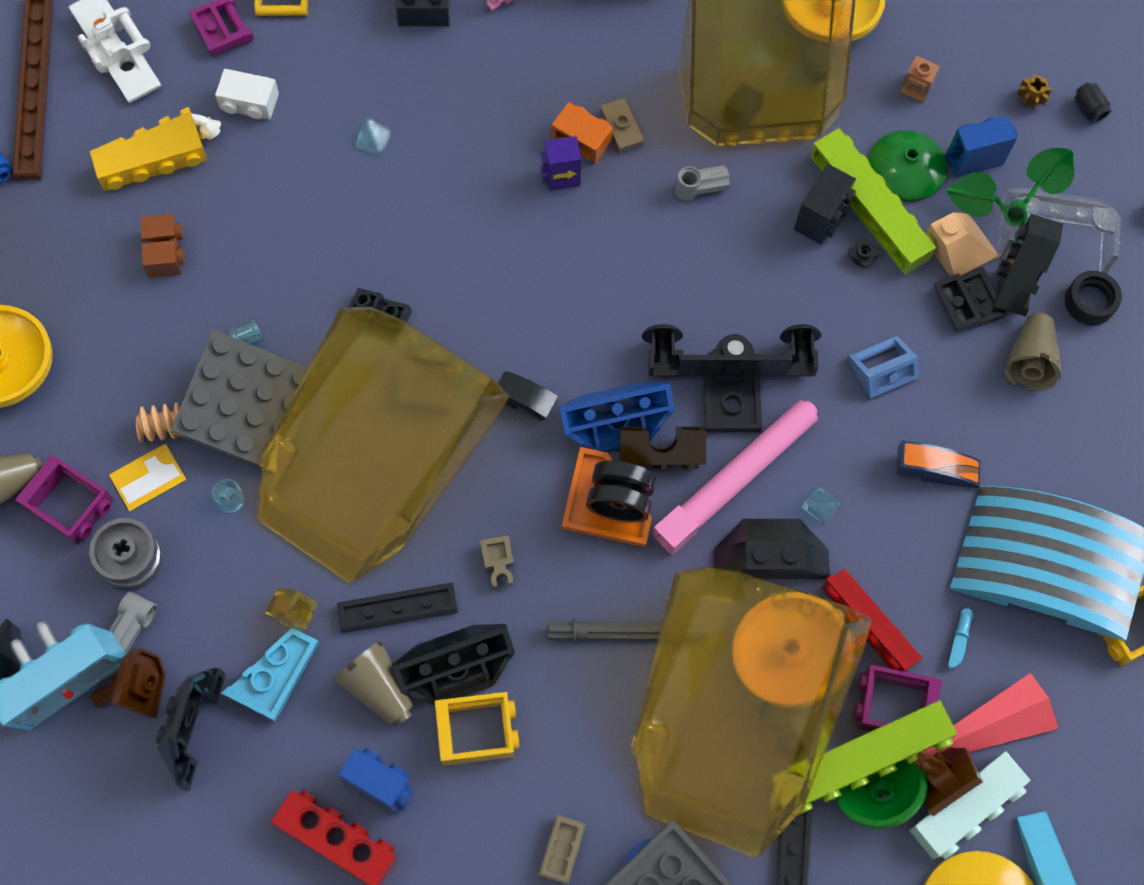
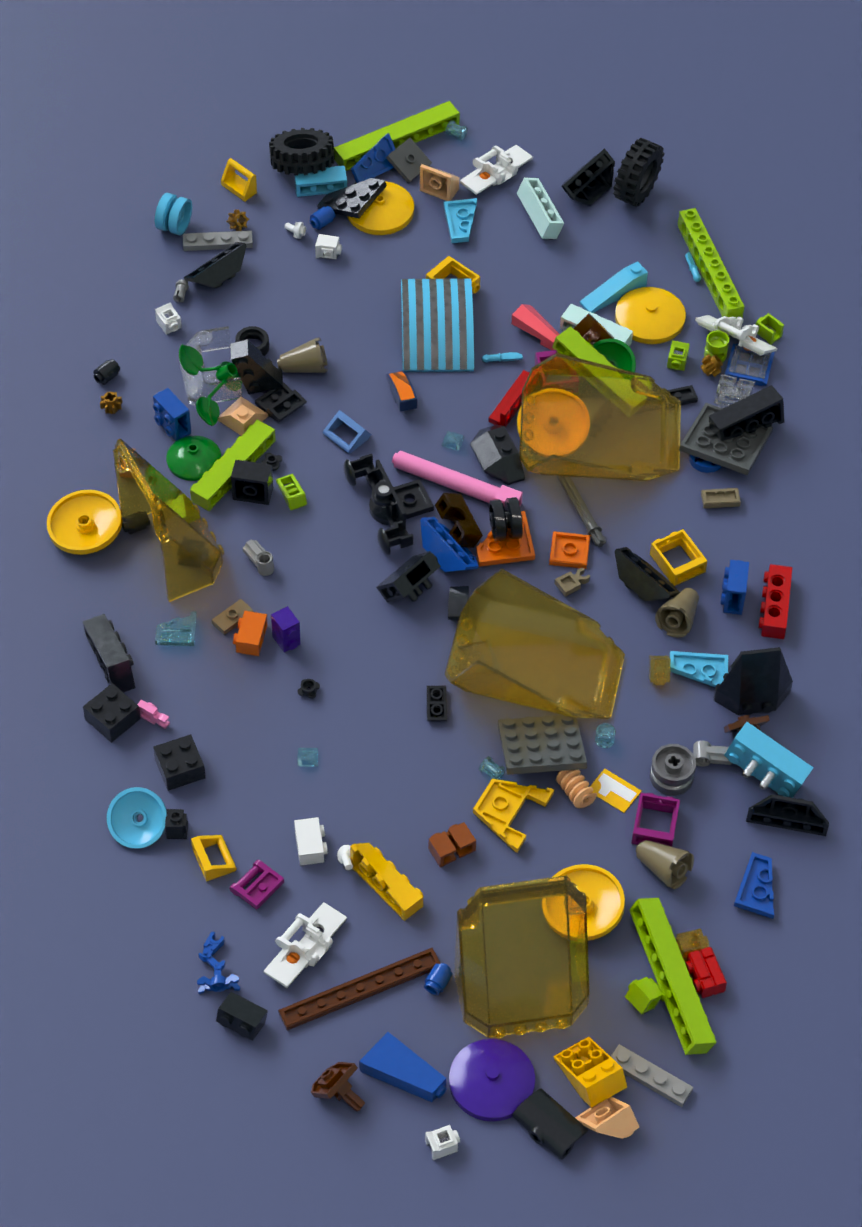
camera: 110 degrees left, 15 degrees down
(186, 322) = (501, 804): none -> yellow wing
(397, 607) = (626, 624): black tile -> none
(471, 165) = (308, 683): none -> black plate
(559, 584) = (569, 550): none -> orange tile
(582, 338) = (408, 578): none -> black piece
(622, 56) = (177, 631): none -> clear light blue wing
(787, 263) = (292, 492): none -> lime slope

